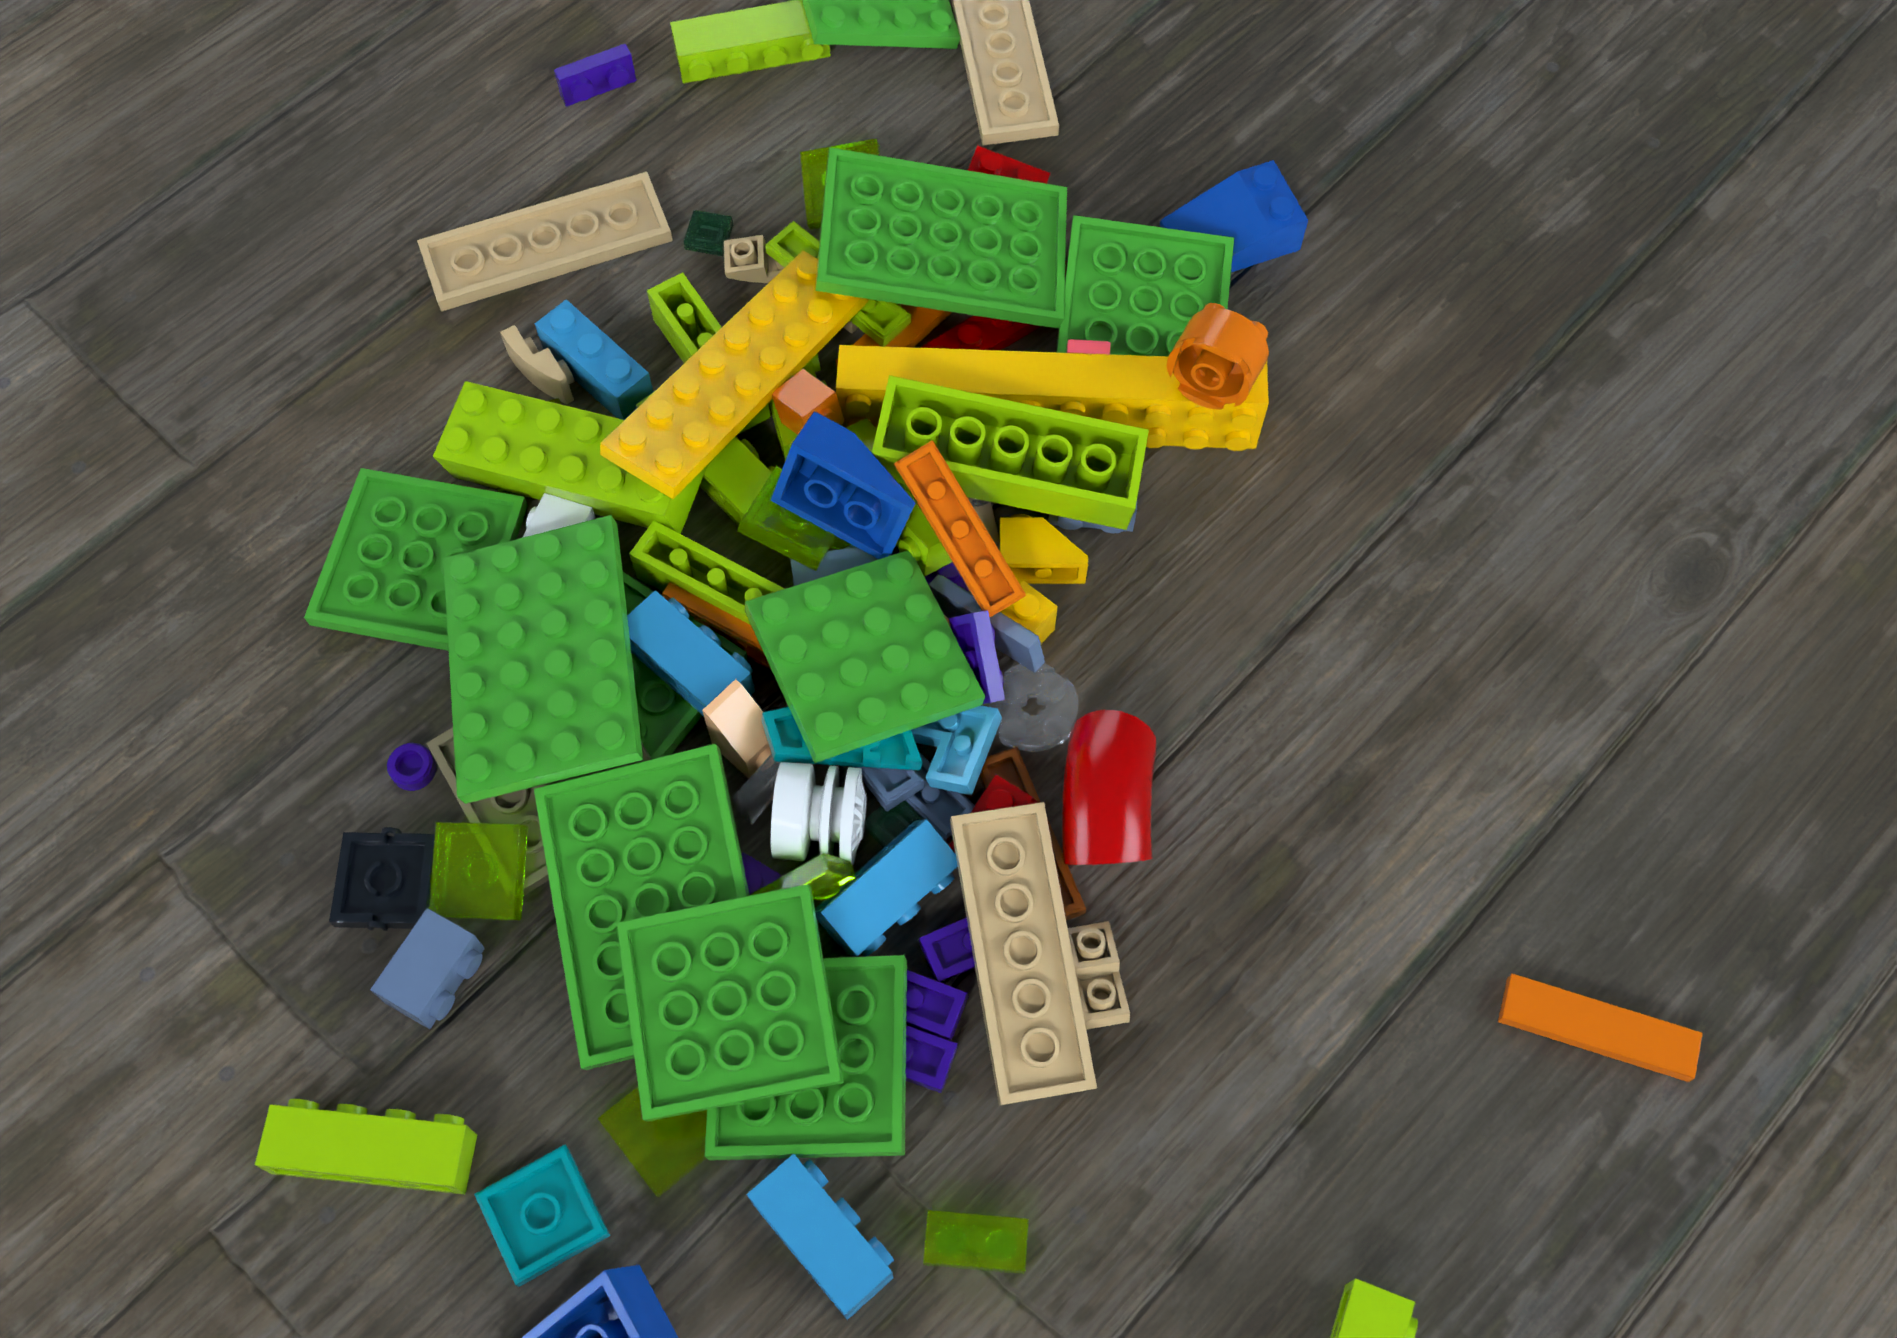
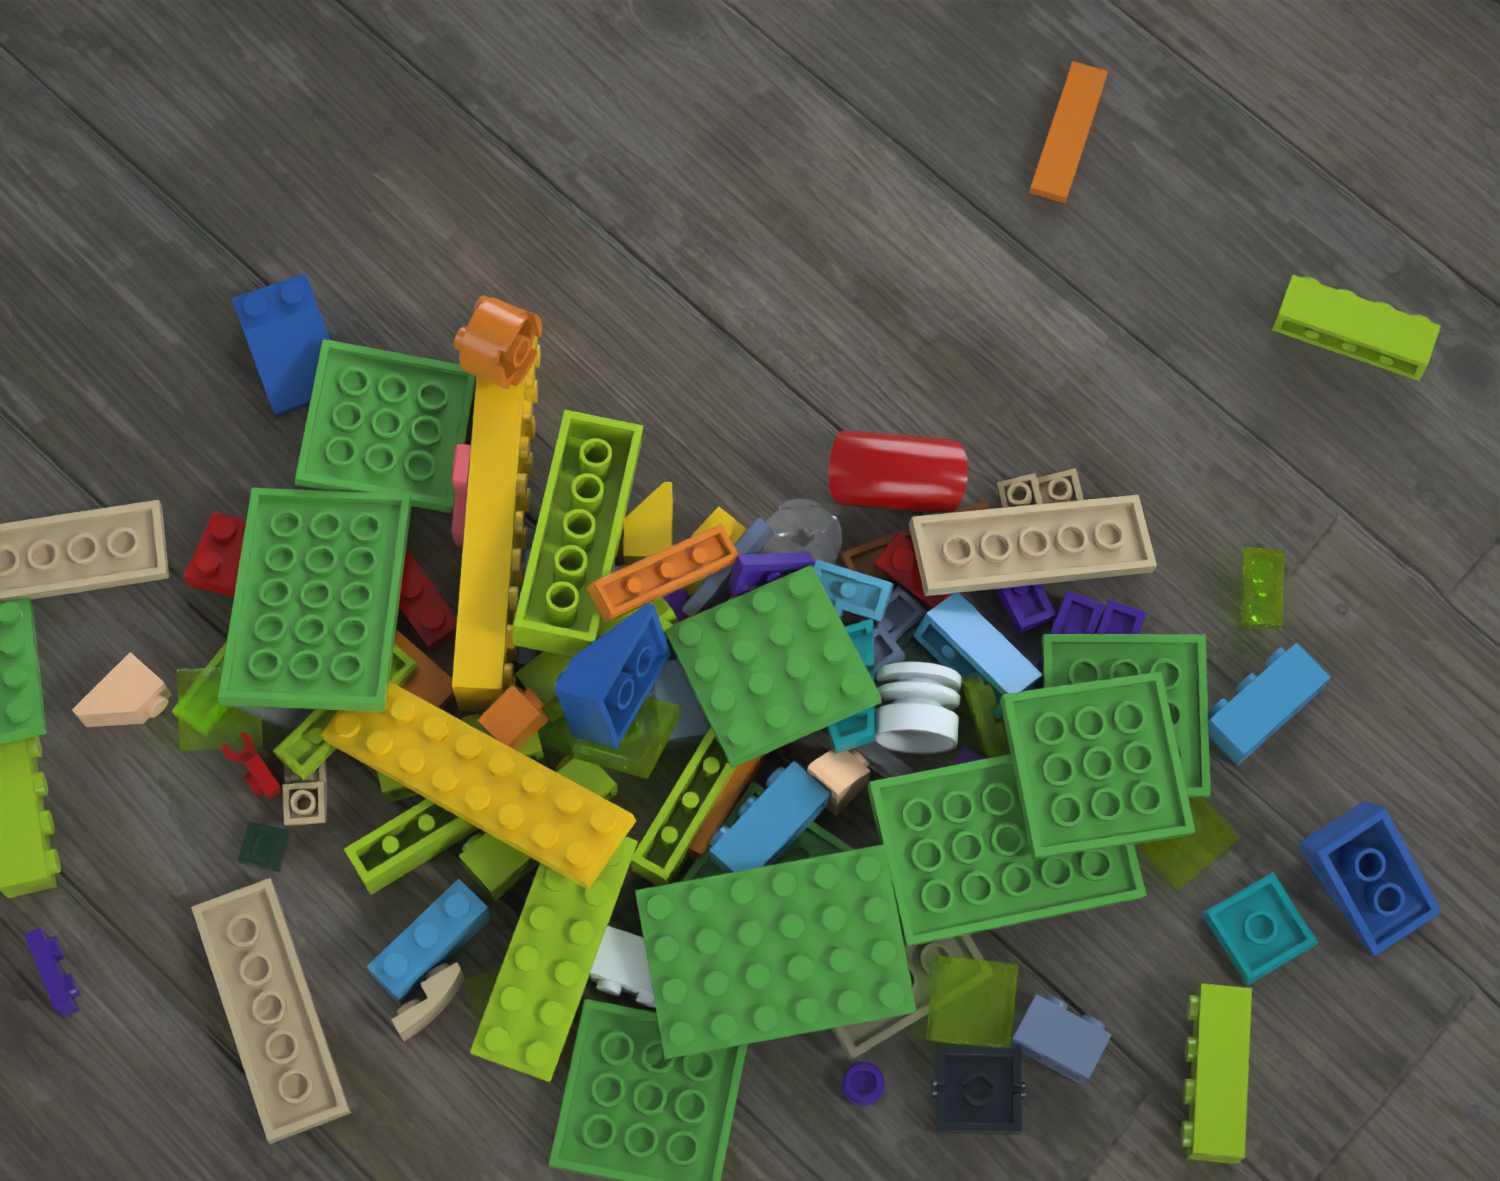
camera: 90 degrees left, 5 degrees up
(778, 213) = (259, 776): none -> red plate
(861, 110) = (124, 696): none -> light nougat slope

